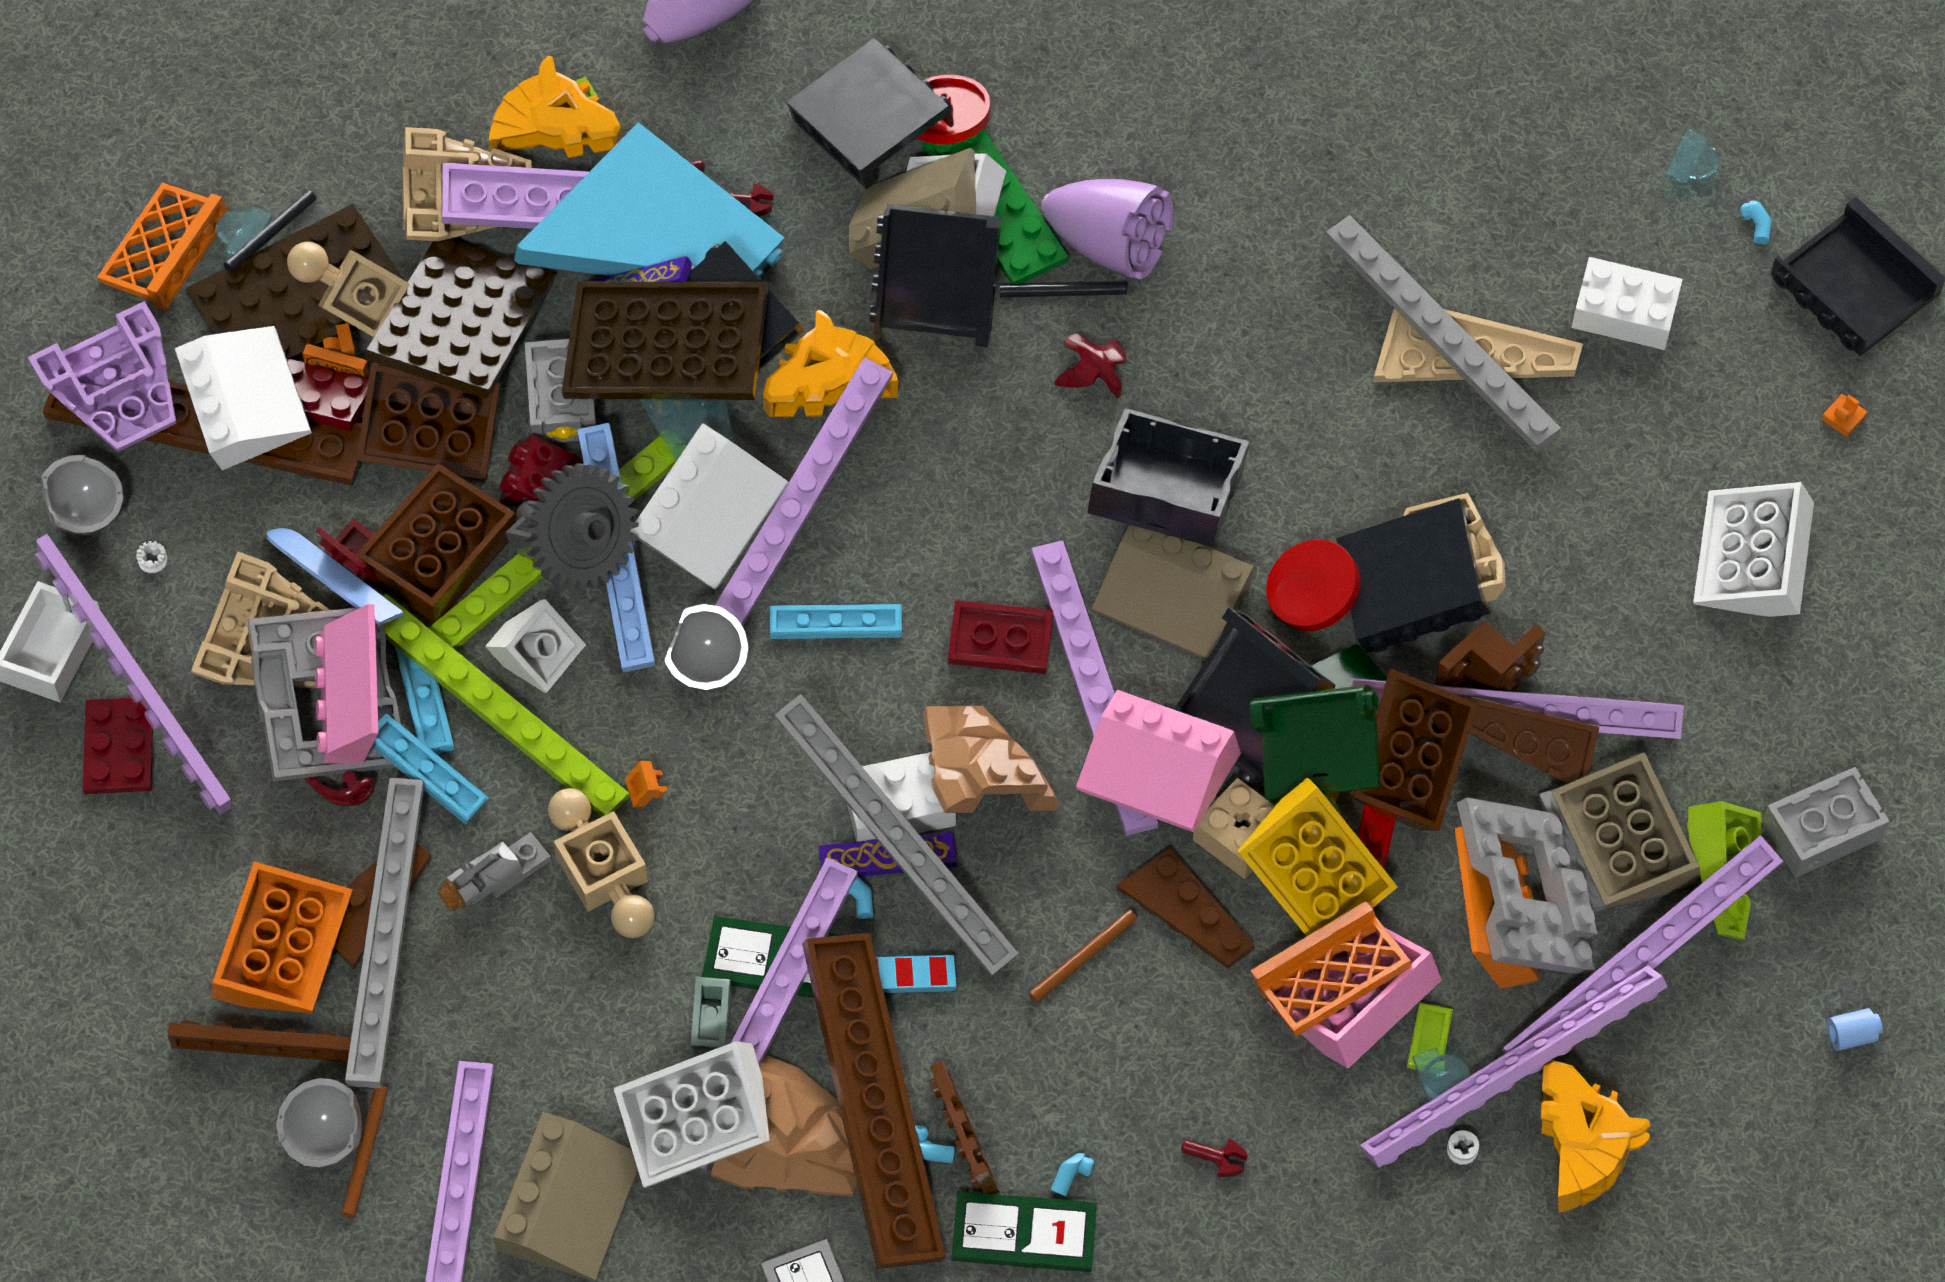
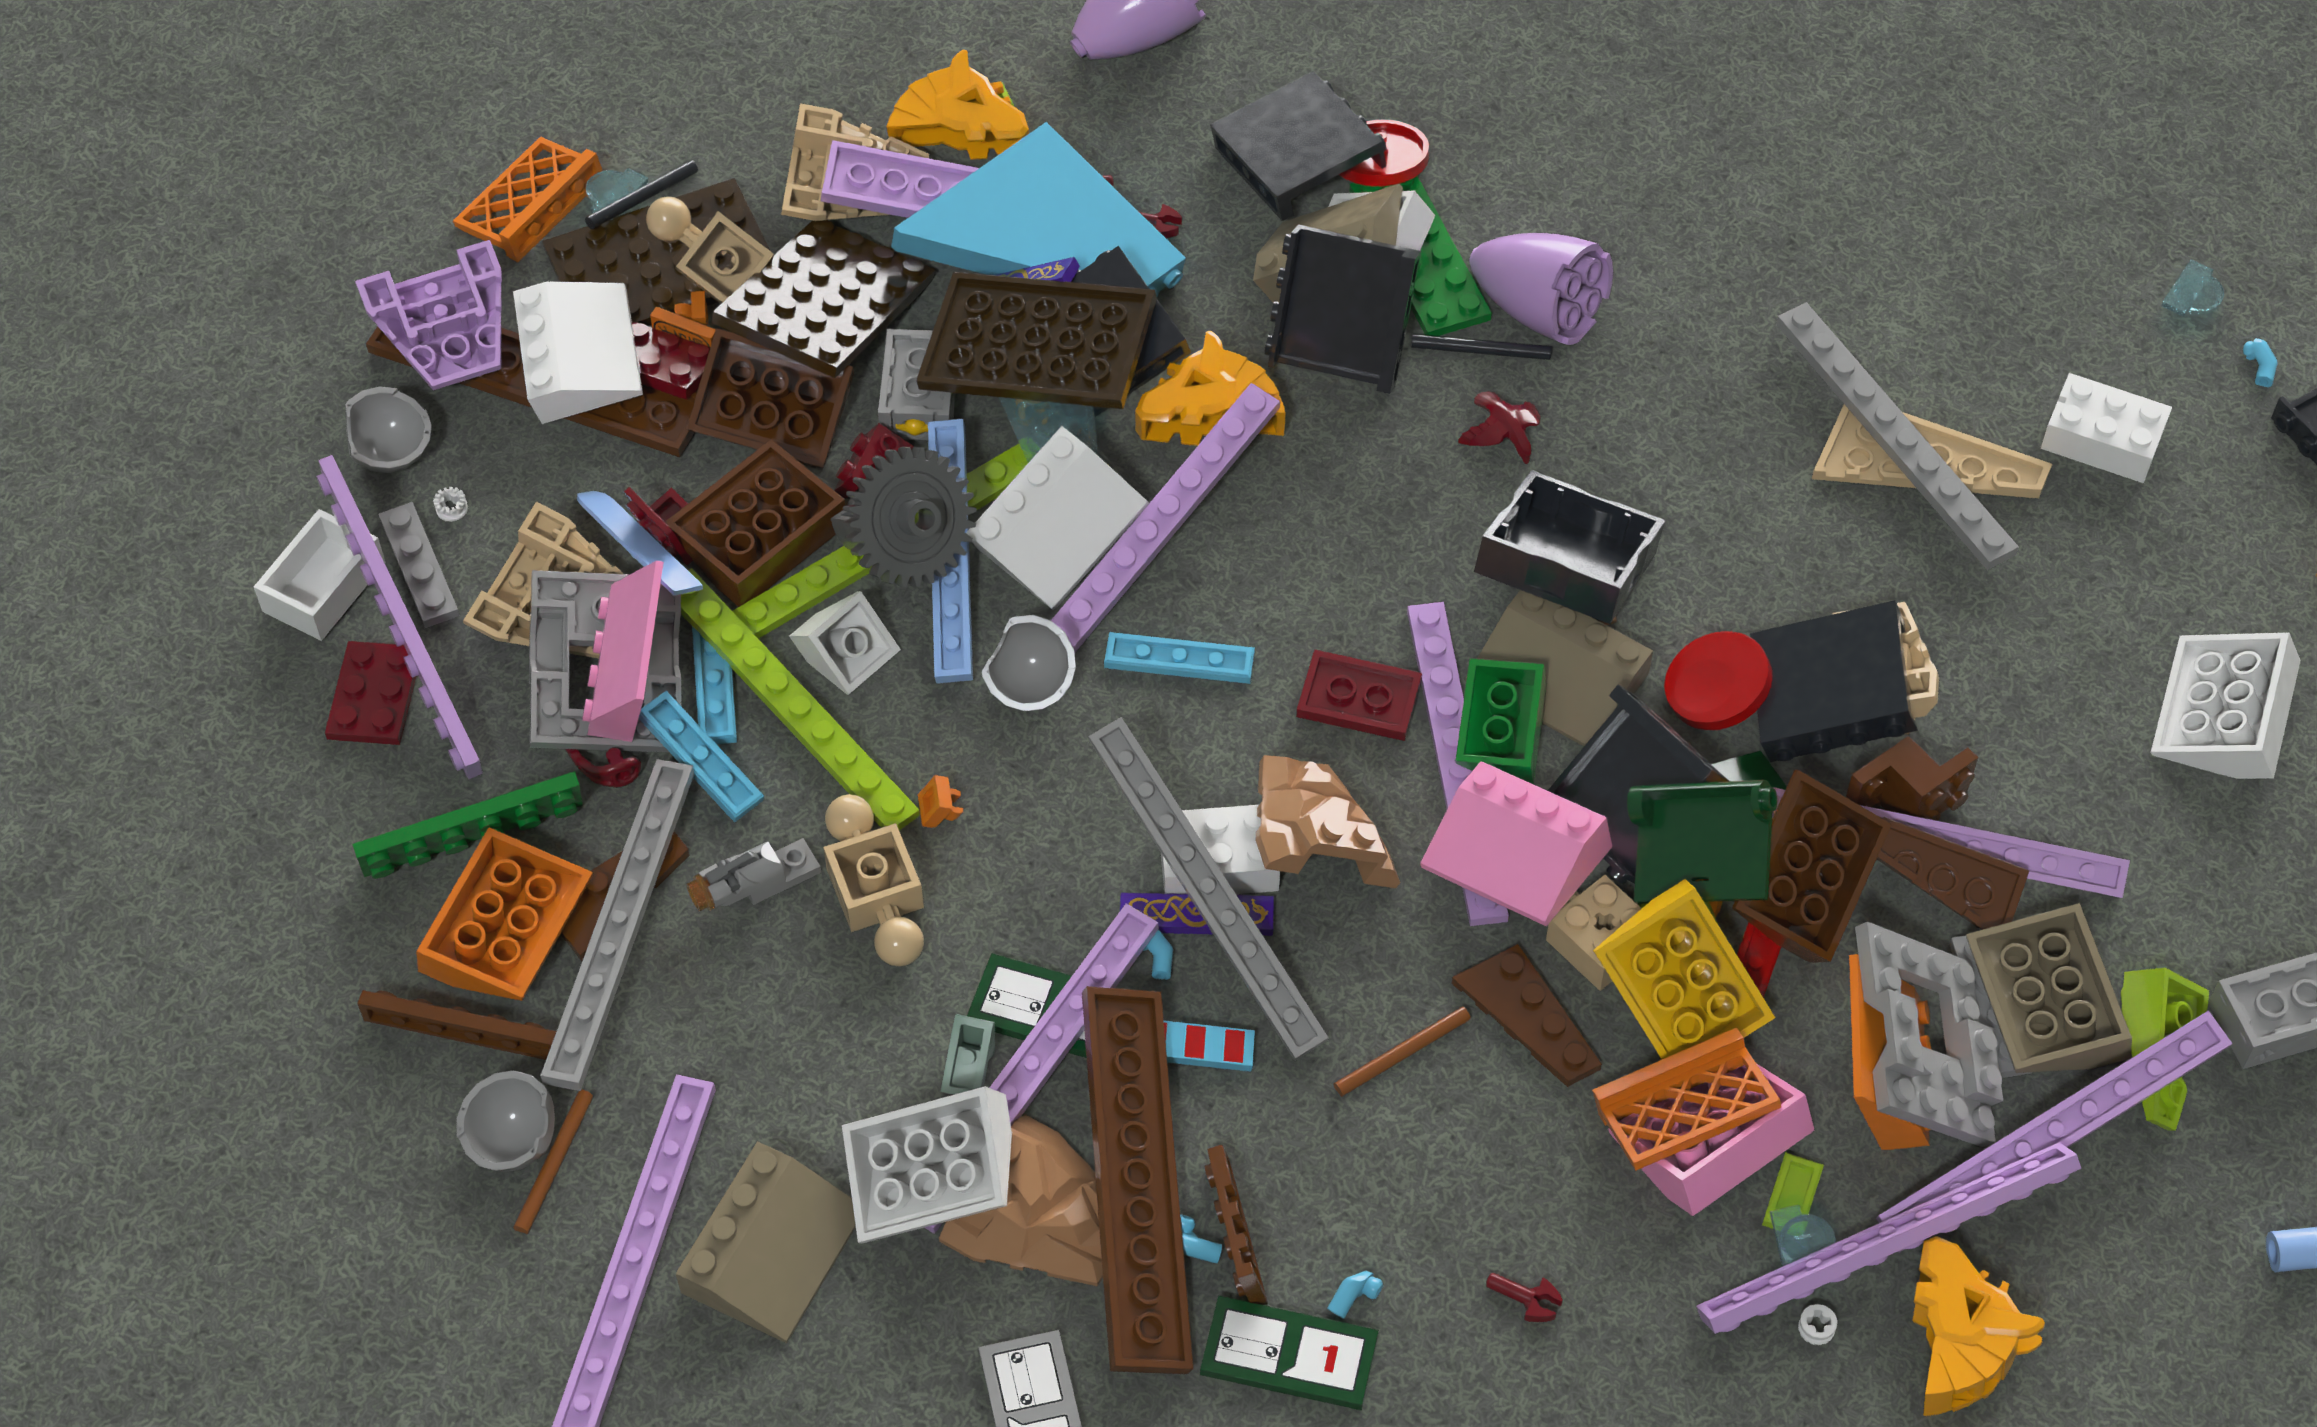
camera: 10 degrees right, 5 degrees down
(134, 618) = (418, 565): none -> light grey plate
(219, 868) = (457, 828): none -> green plate
(1129, 645) = (1502, 716): none -> green slope

